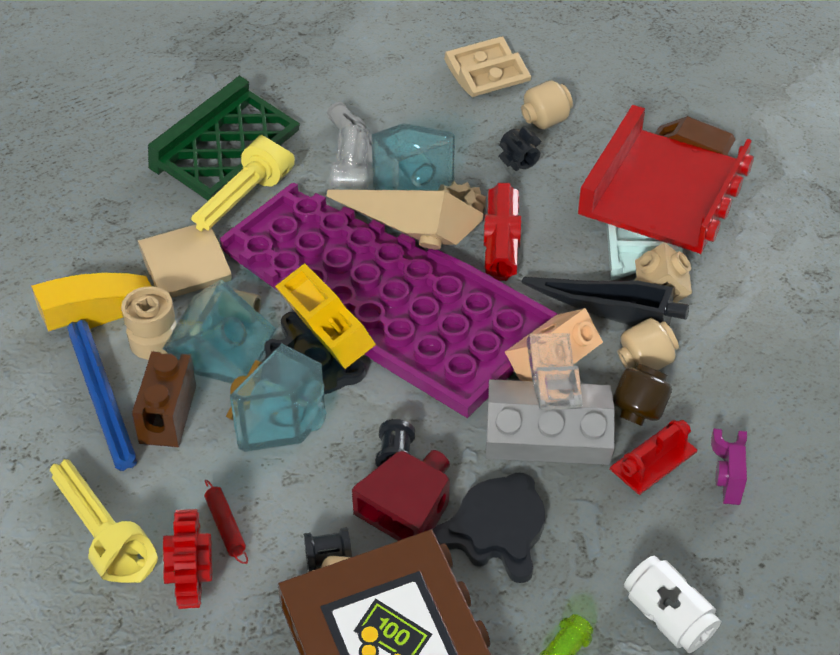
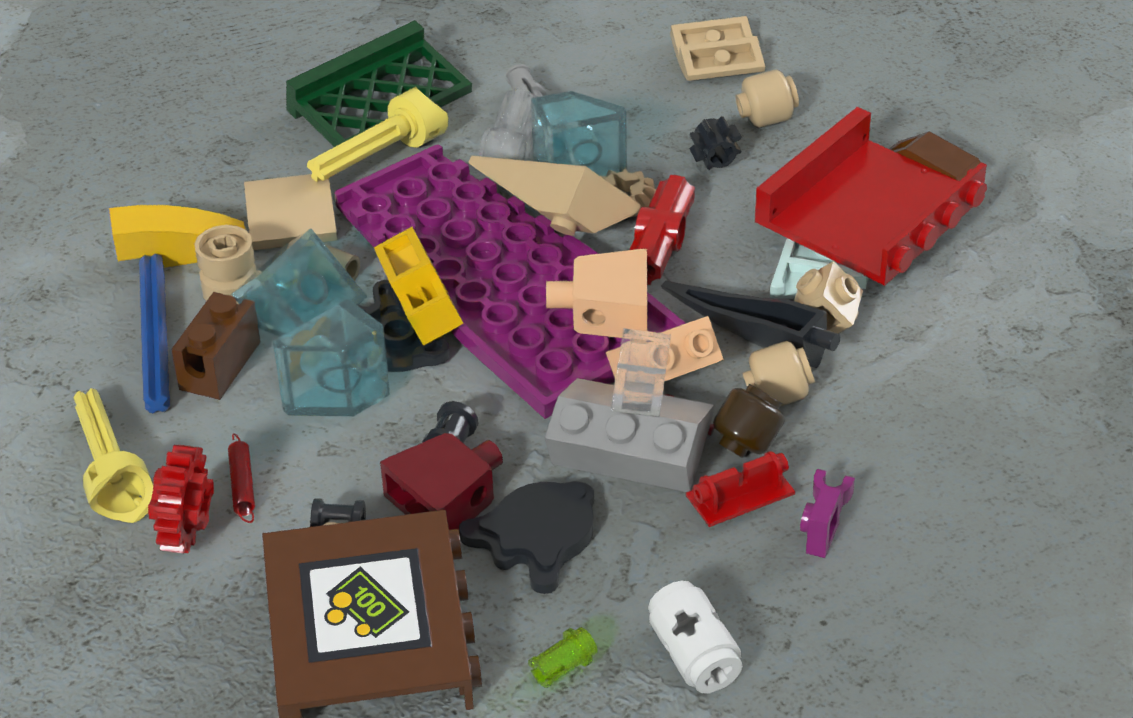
camera: 15 degrees right, 5 degrees down
(489, 300) = (604, 293): none -> light nougat torso

